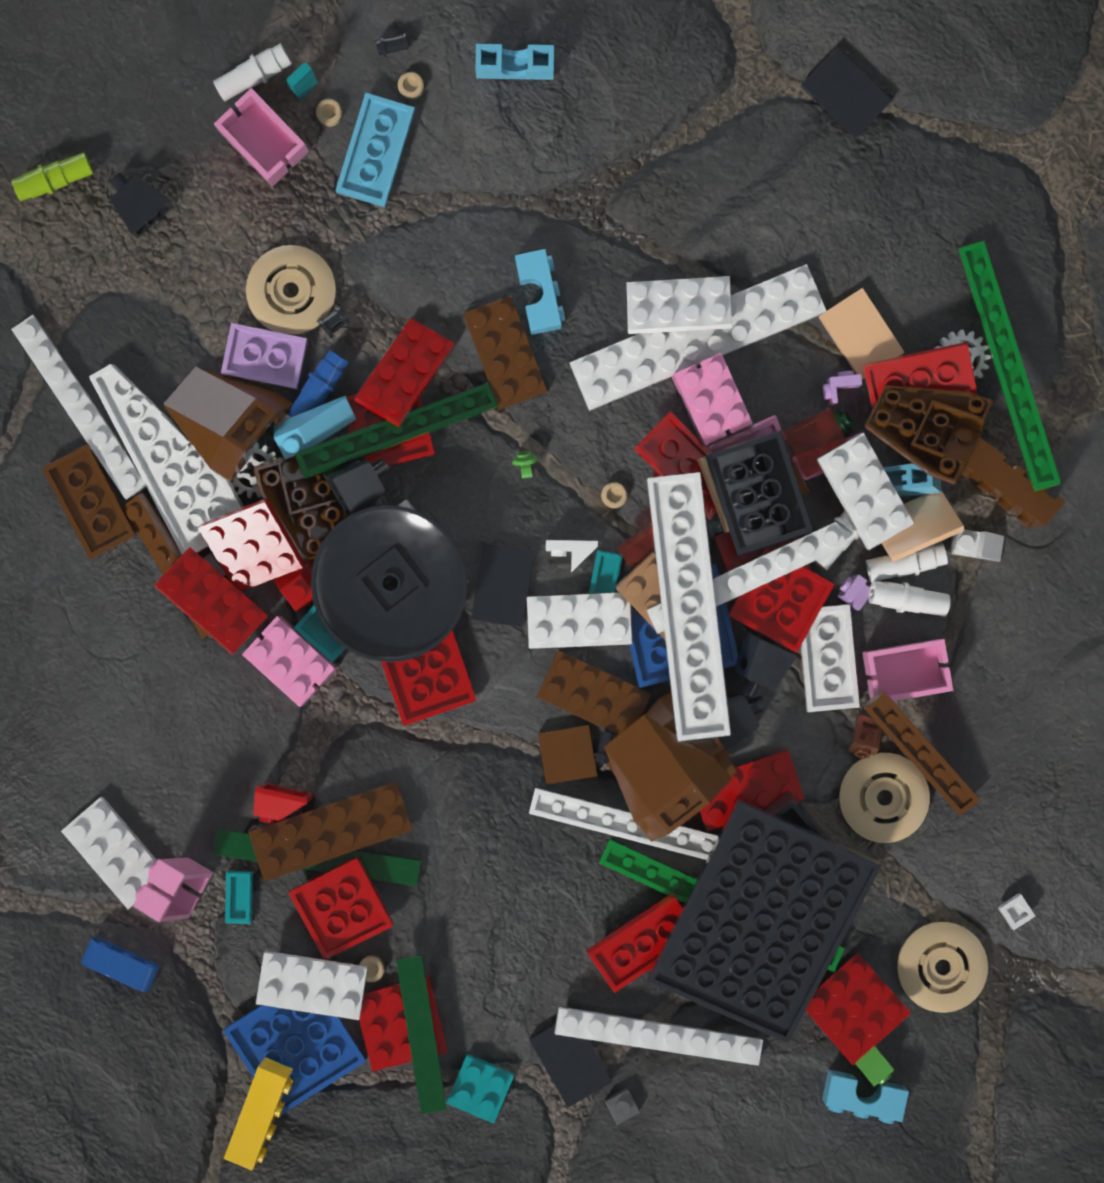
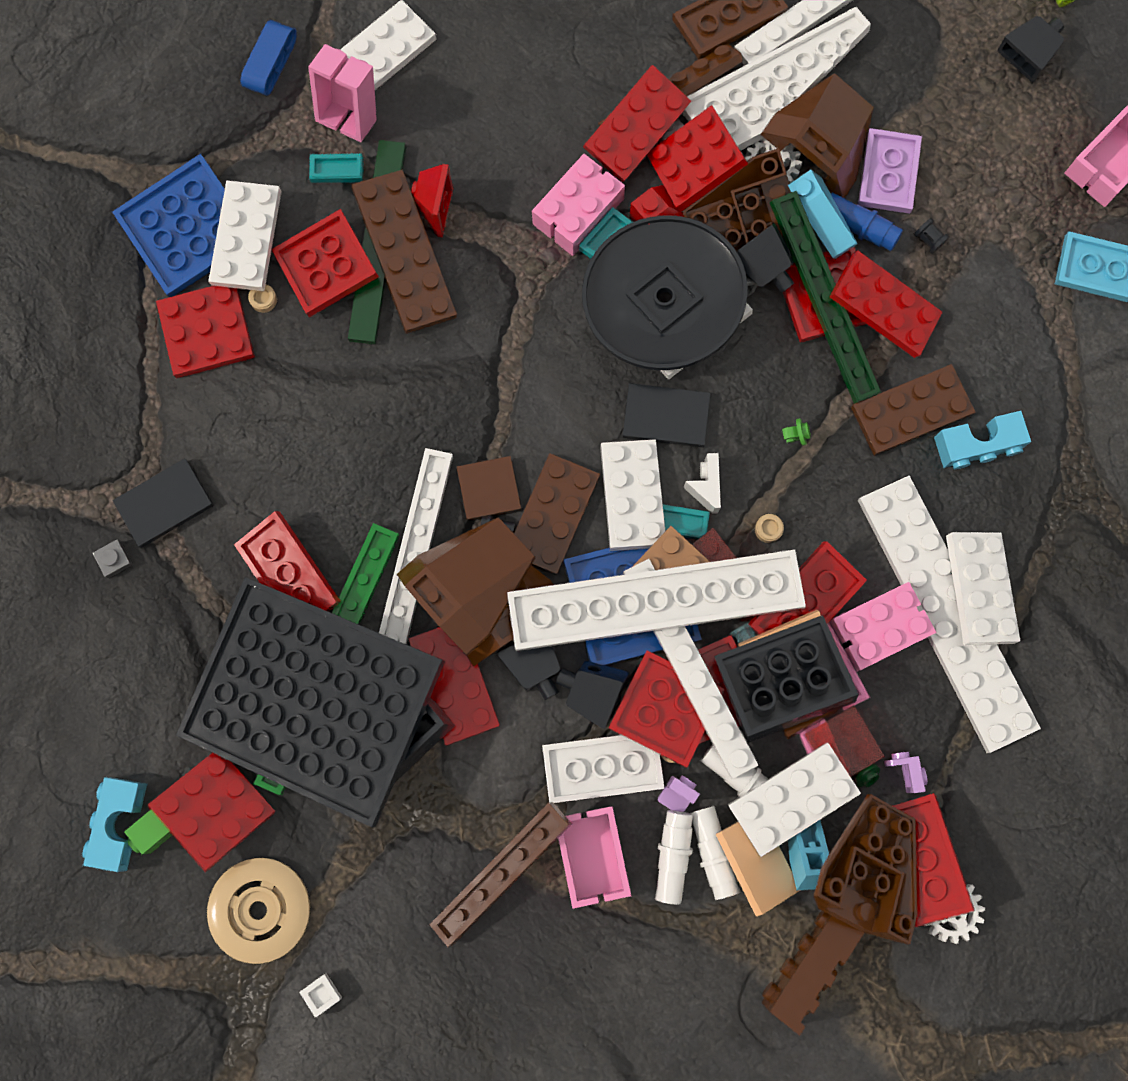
camera: 90 degrees right, 10 degrees down
(258, 1114) = (114, 189): yellow brick -> none
(312, 278) = (978, 211): tan piece -> none
(421, 1034) = (192, 345): dark green tile -> none
(430, 682) = (563, 344): red plate -> none
(480, 1088) = (135, 411): teal plate -> none
(658, 1036) = (186, 595): white plate -> none
(860, 332) = (971, 791): light nougat tile -> none
(865, 737) = (514, 811): copper bracket -> none
(908, 803) = (448, 808): tan piece -> none
(977, 545) = (738, 936): white slope -> none
(1009, 366) = (947, 965): green plate -> none

